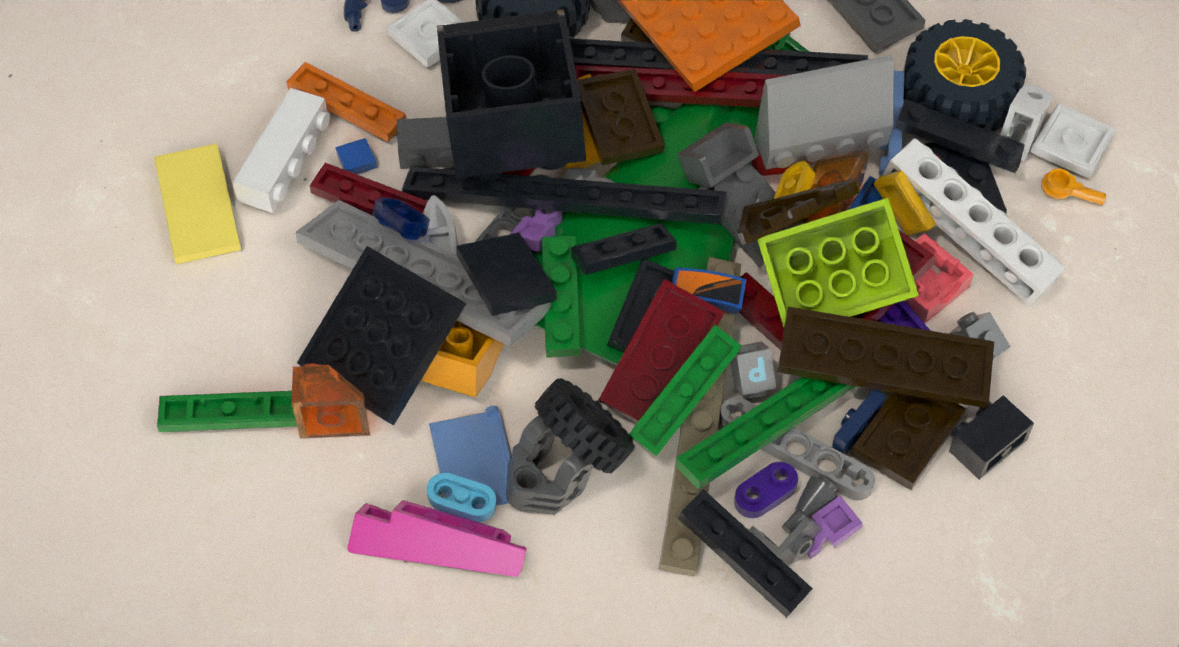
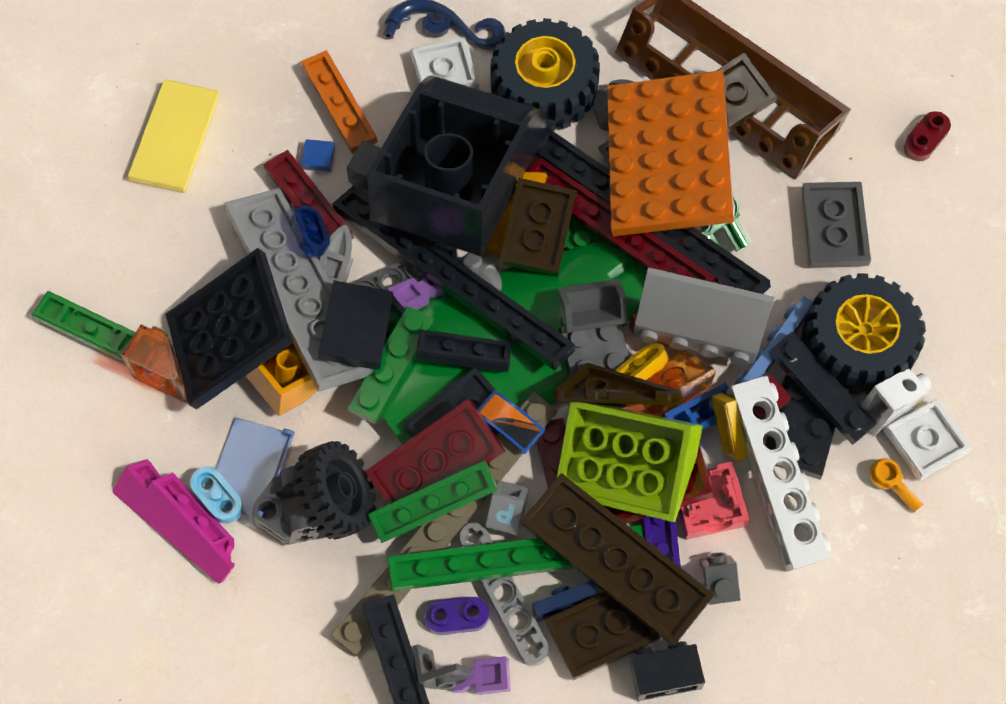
camera: 30 degrees right, 10 degrees up
(281, 150) = (260, 122): white brick -> none
(814, 497) = (486, 646): dark grey cone -> none

